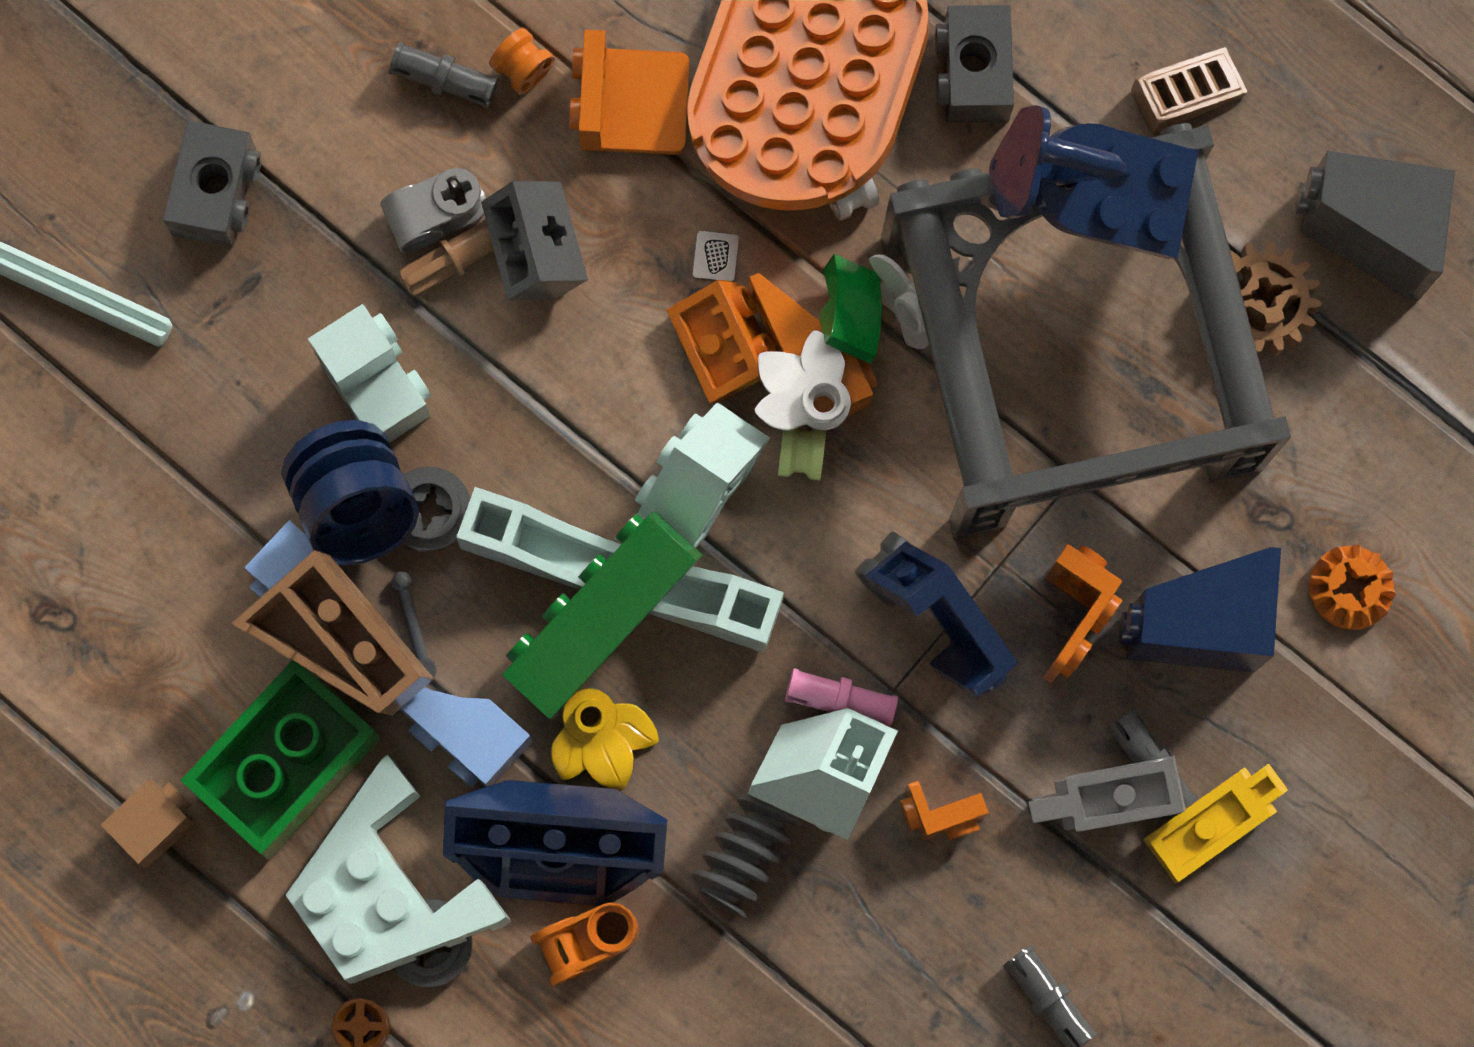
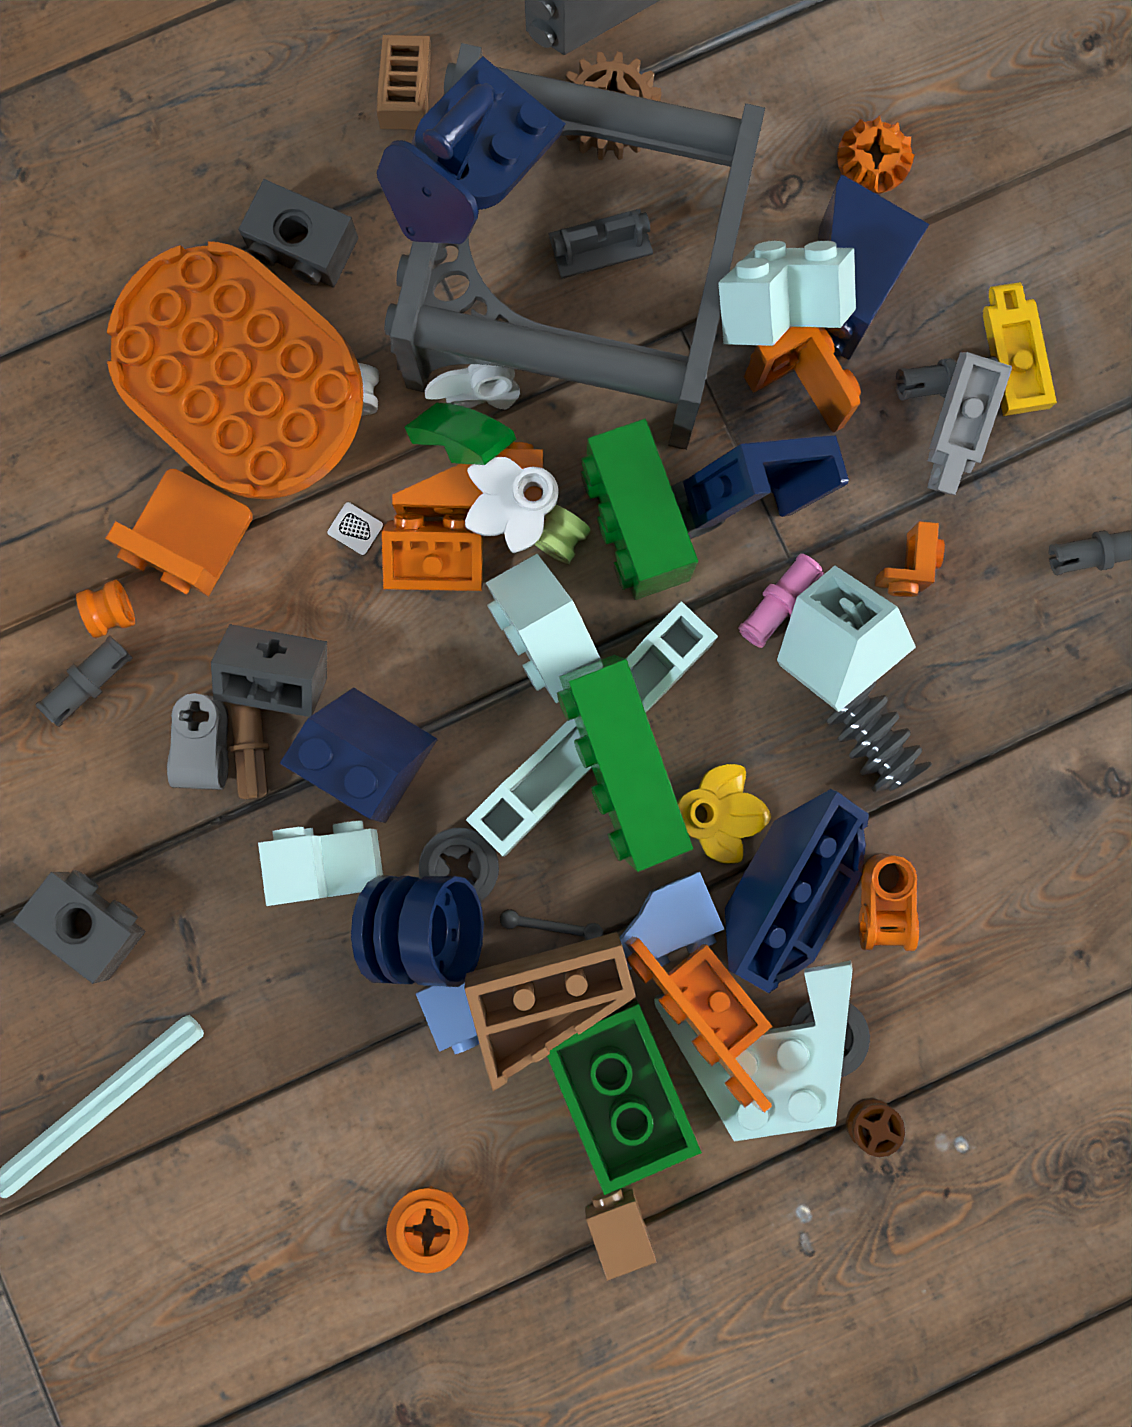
camera: 60 degrees left, 5 degrees up
(48, 631) = (408, 1244): none -> orange gear
(404, 804) = (714, 1008): none -> orange bracket
(492, 362) = (359, 753): none -> dark blue slope
(855, 512) = (638, 510): none -> green brick
(1119, 356) = (601, 243): none -> dark grey hinge
(1127, 539) = (785, 290): none -> light aqua brick

